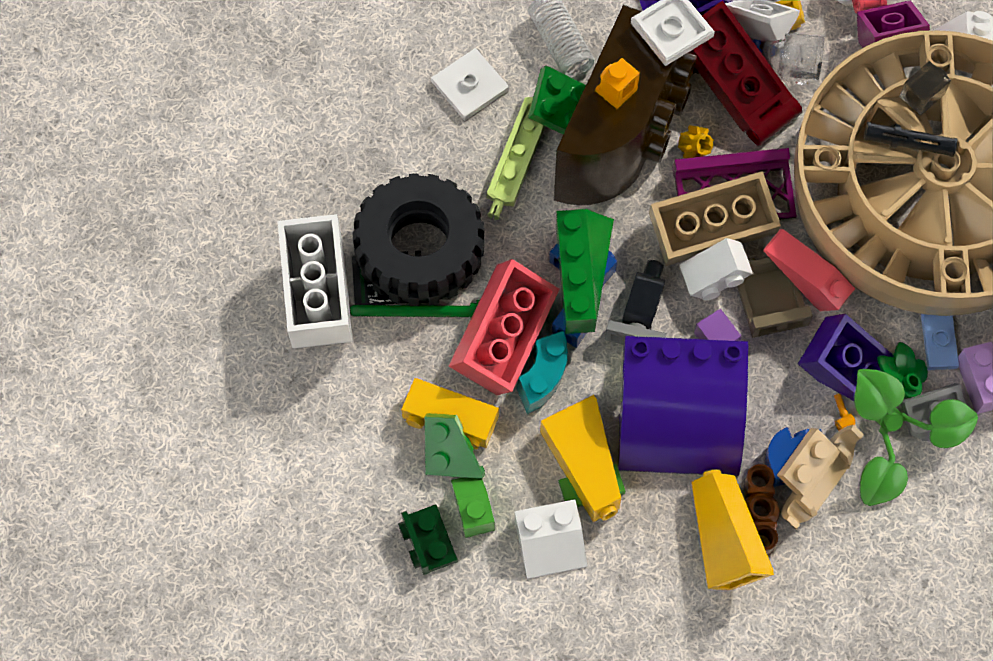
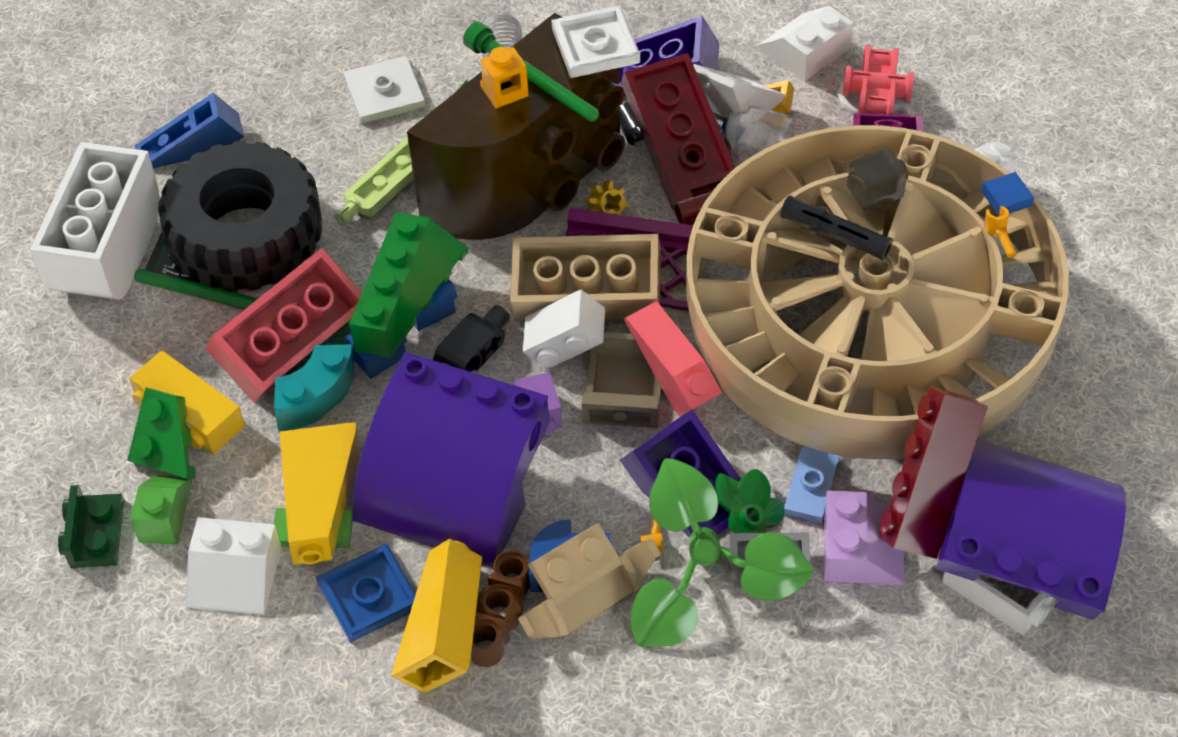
camera: 20 degrees right, 15 degrees down
(336, 174) = (194, 131): none -> blue slope
(581, 49) = (481, 40): none -> green piece
(656, 525) = (367, 592): none -> blue tile

